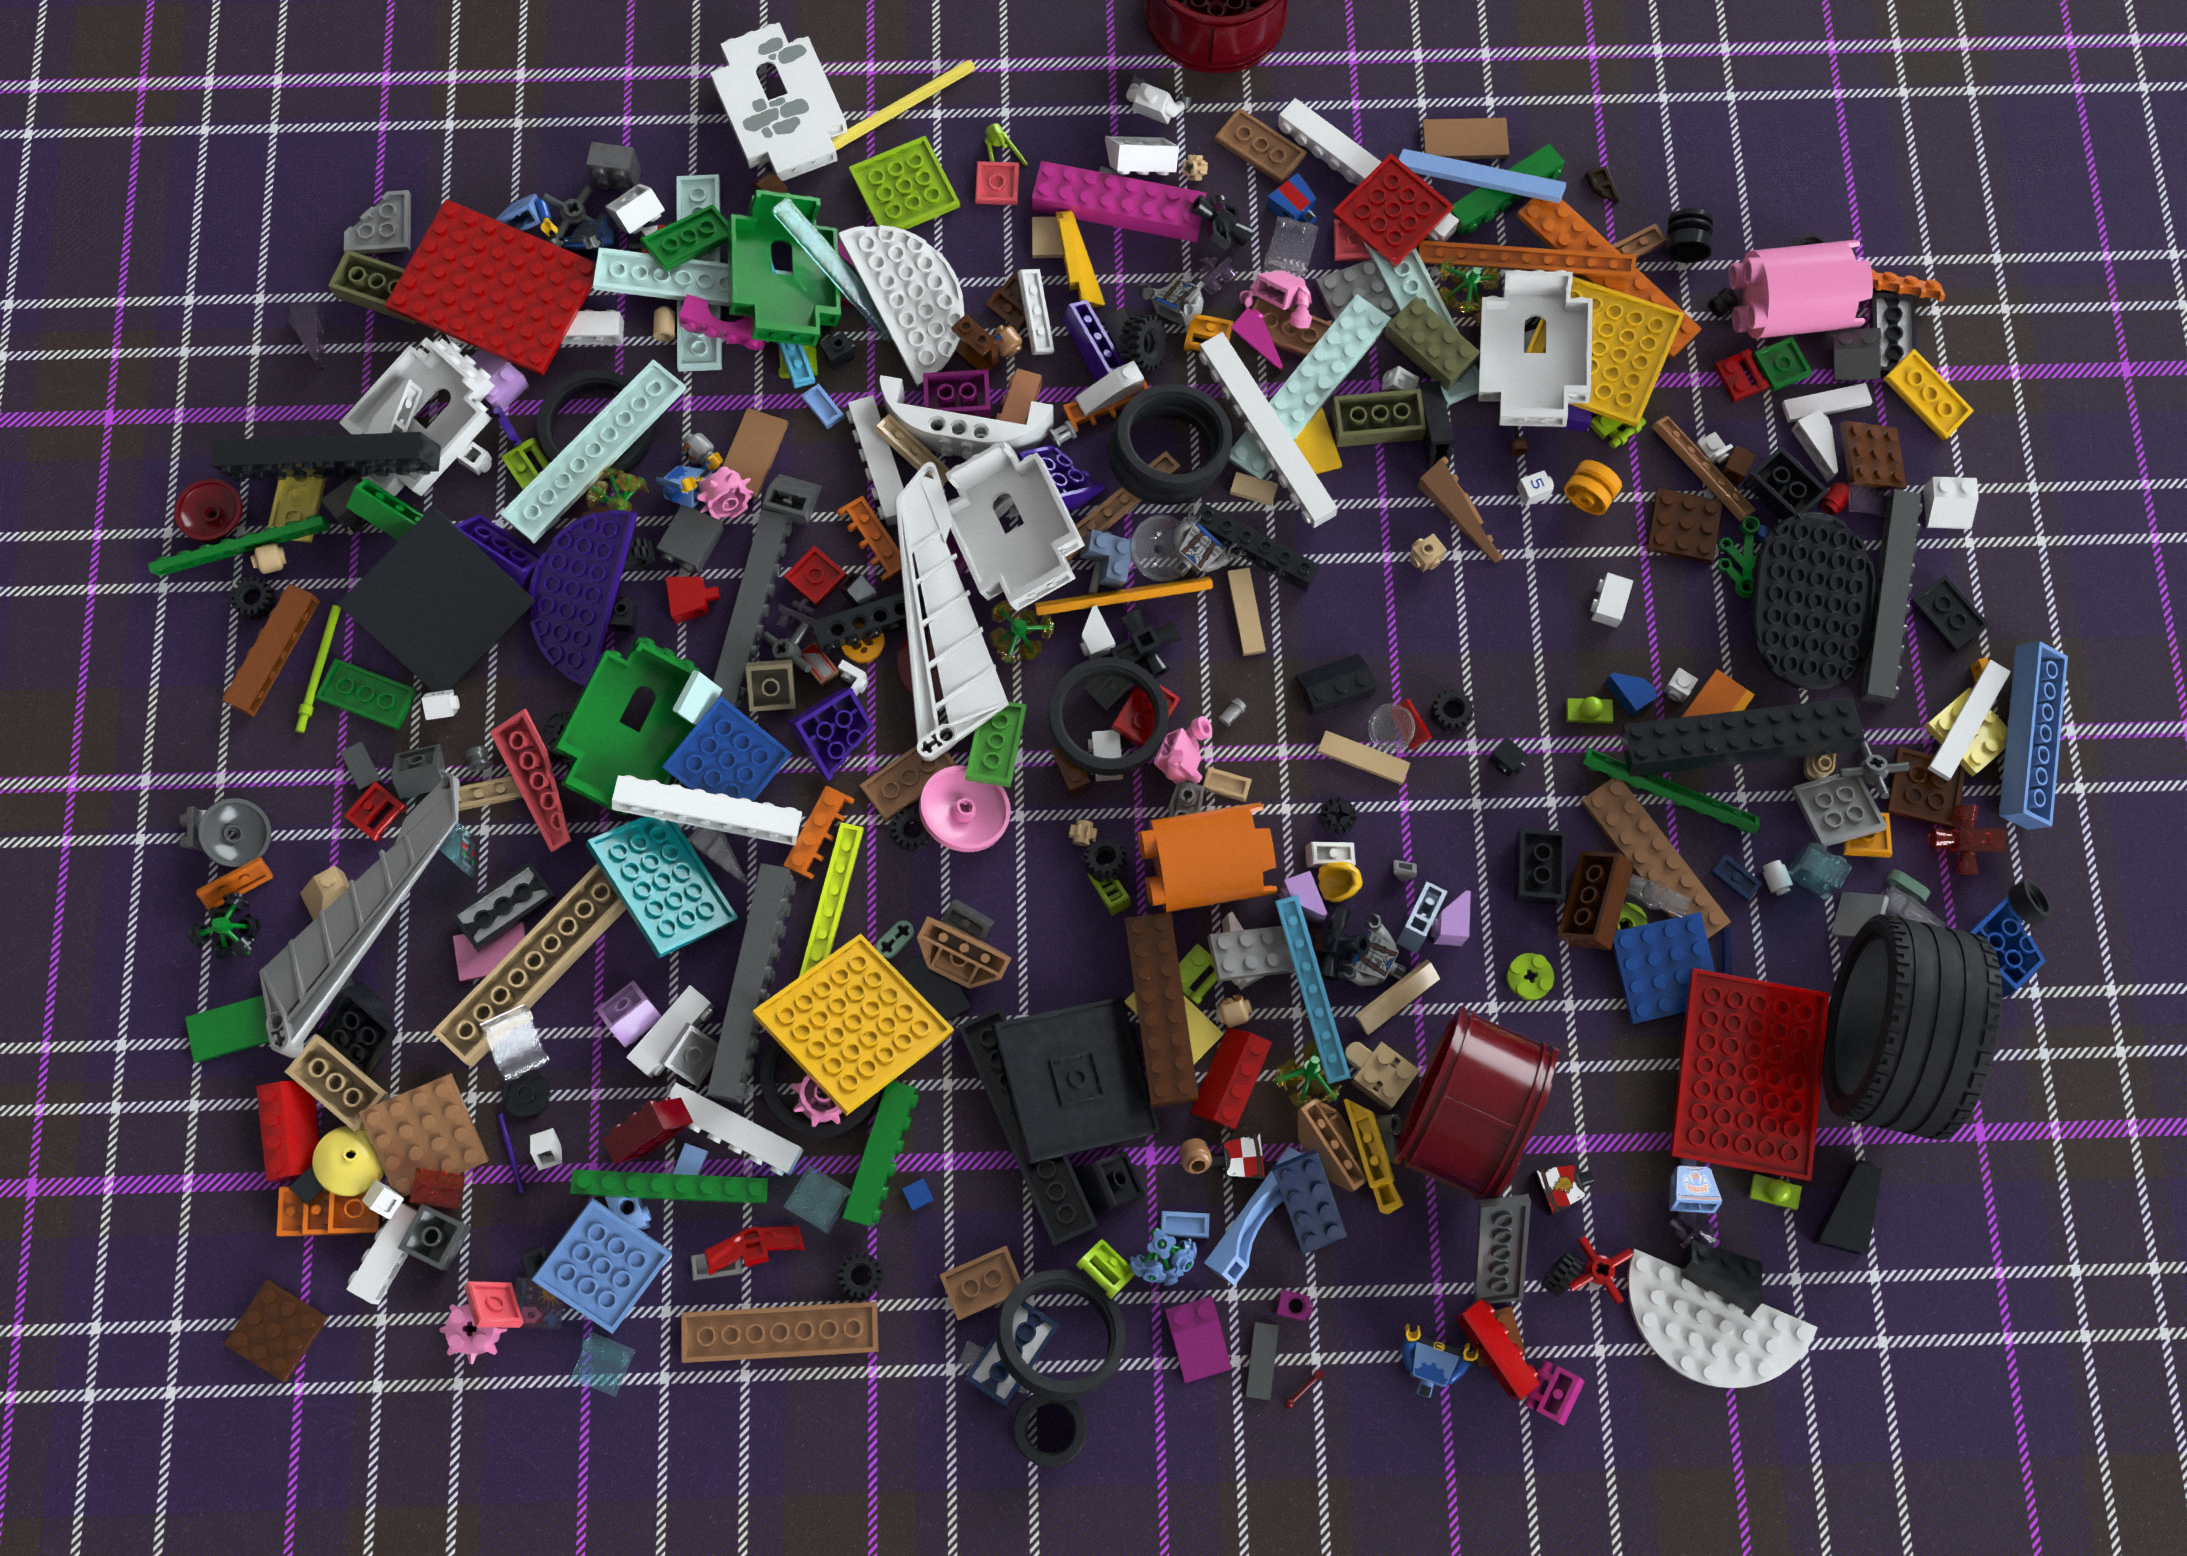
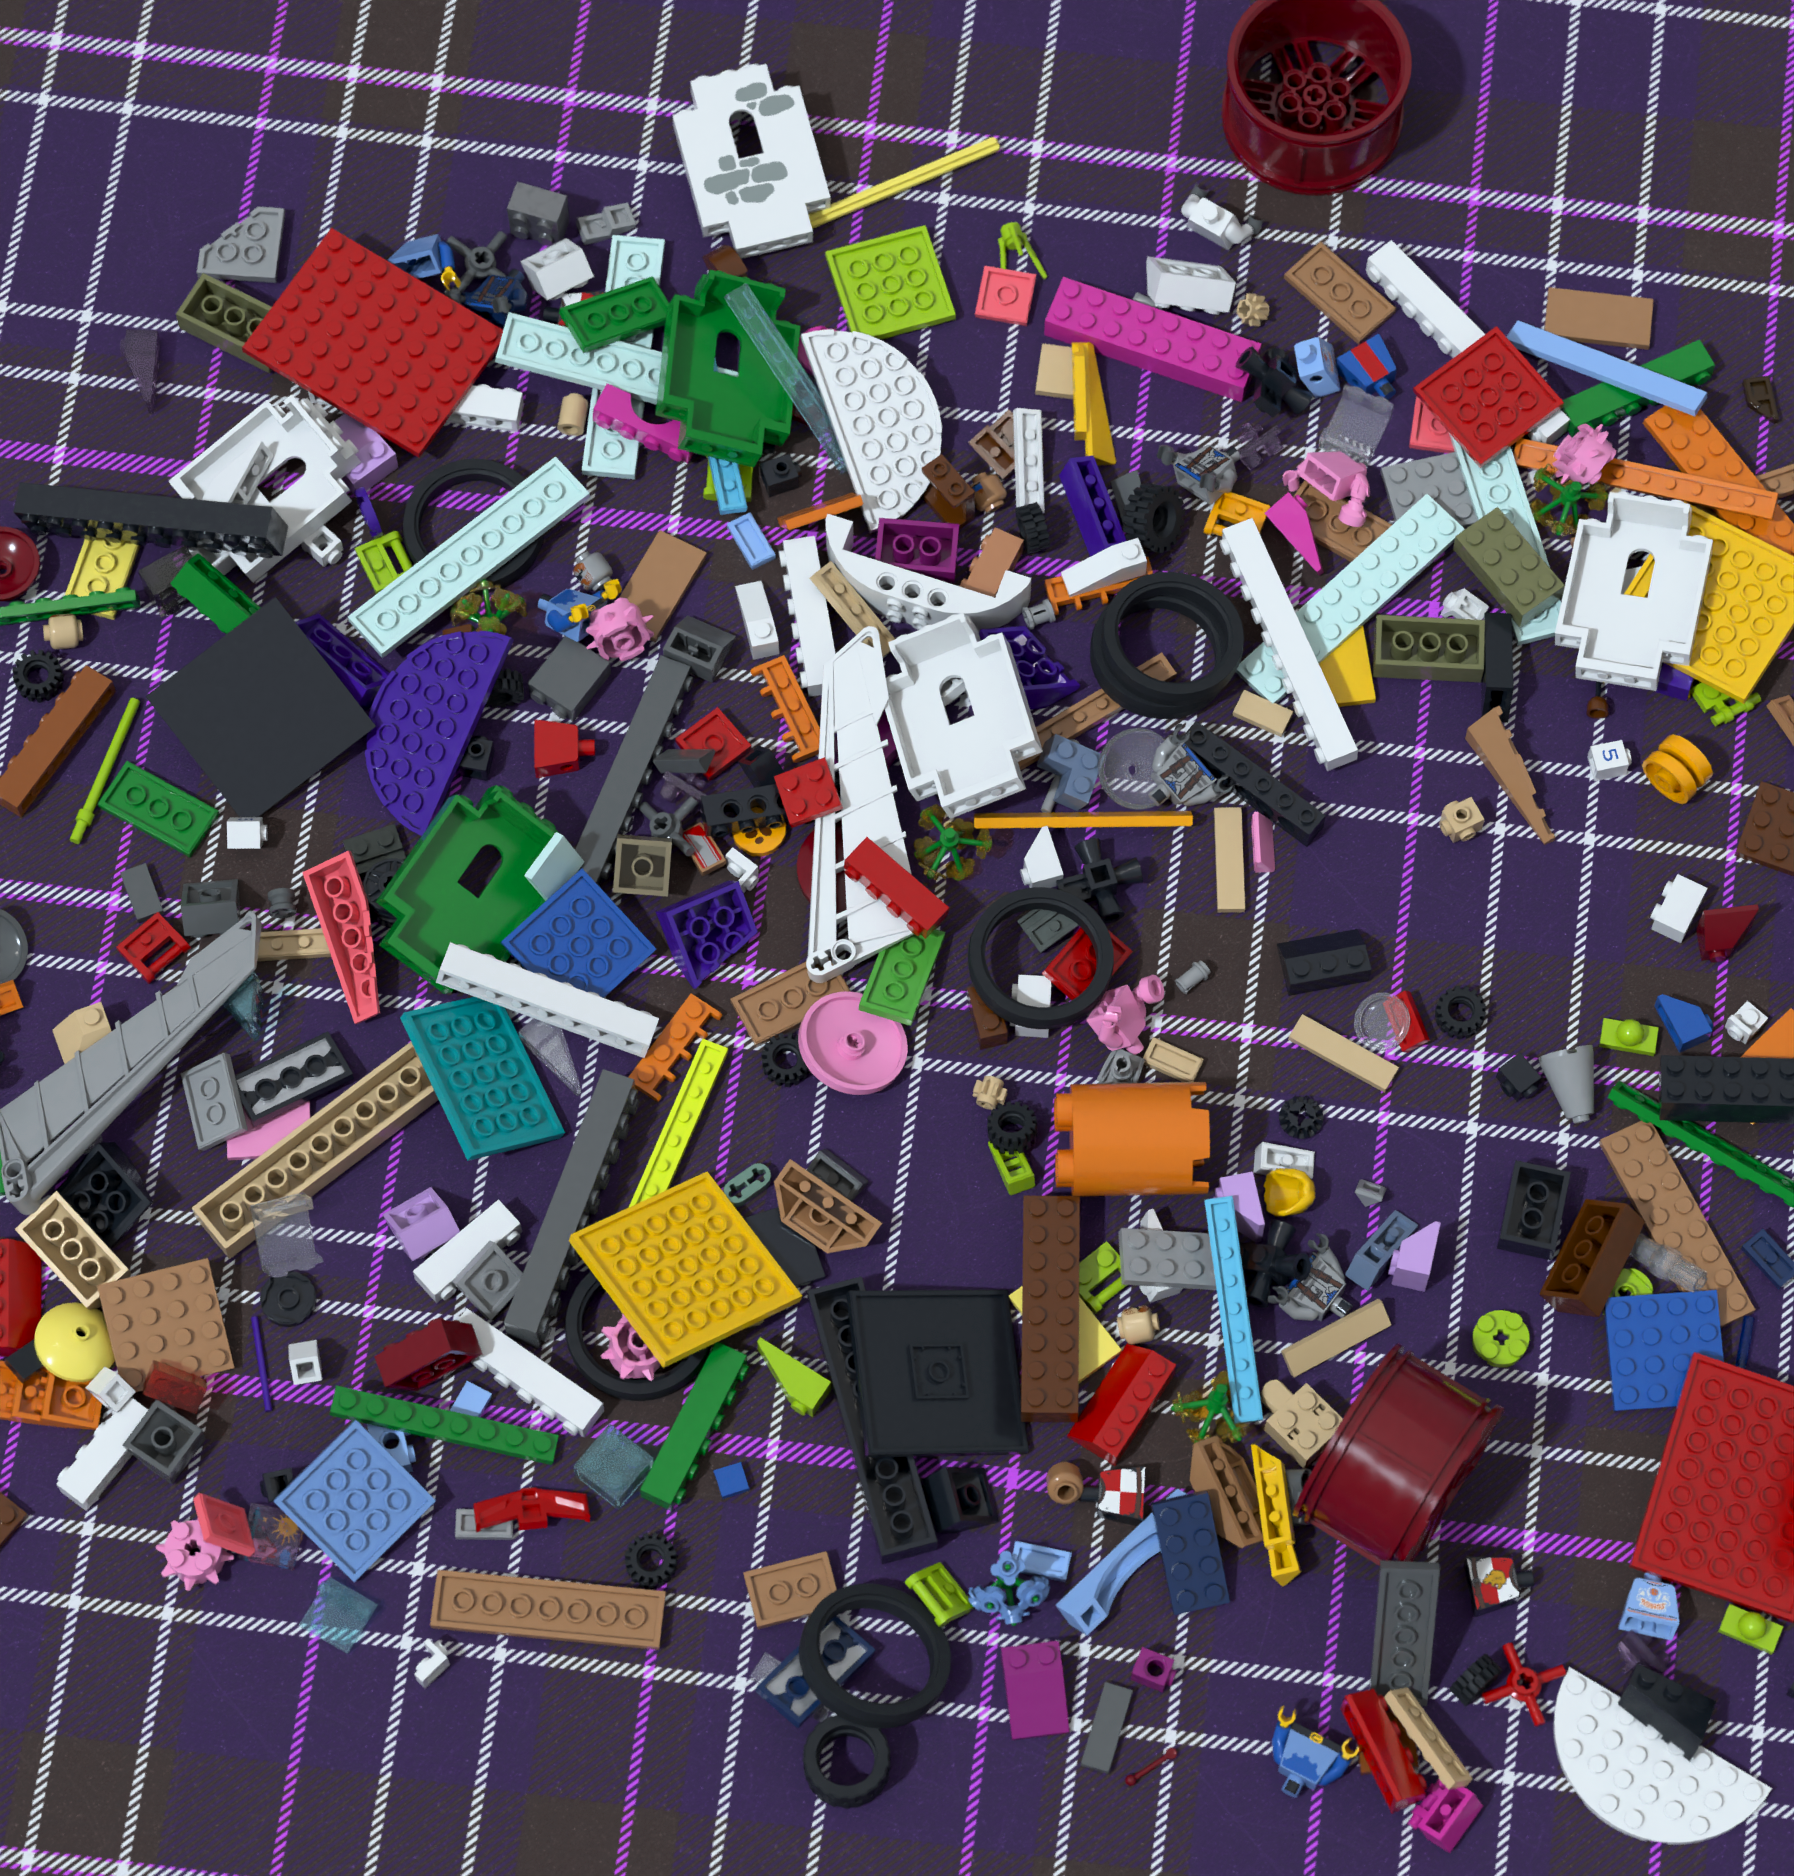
camera: 10 degrees right, 5 degrees down
(441, 935) = (214, 1101): none -> light grey tile
(548, 701) = (374, 847): none -> pearl dark grey plate
(667, 171) = (602, 226): none -> light grey slope
(686, 1400) = (432, 1667): none -> white bracket
(793, 593) = (684, 760): none -> dark grey slope
(837, 470) = (757, 620): none -> white slope
(874, 374) = (820, 511): none -> orange tile
(898, 606) = (808, 792): none -> red plate
(961, 1102) = (799, 1383): none -> lime slope
(981, 675) = (895, 888): none -> red brick
(1047, 364) = (1032, 528): none -> black tyre
(1252, 199) = (1316, 359): none -> light blue torso
(1270, 595) = (1262, 843): none -> bright pink slope
(1478, 245) = (1583, 455): none -> bright pink brick
(1533, 1334) = (1428, 1738): none -> tan plate
(1552, 754) = (1572, 1080): none -> light grey cone
(1650, 614) = (1723, 930): none -> dark red slope

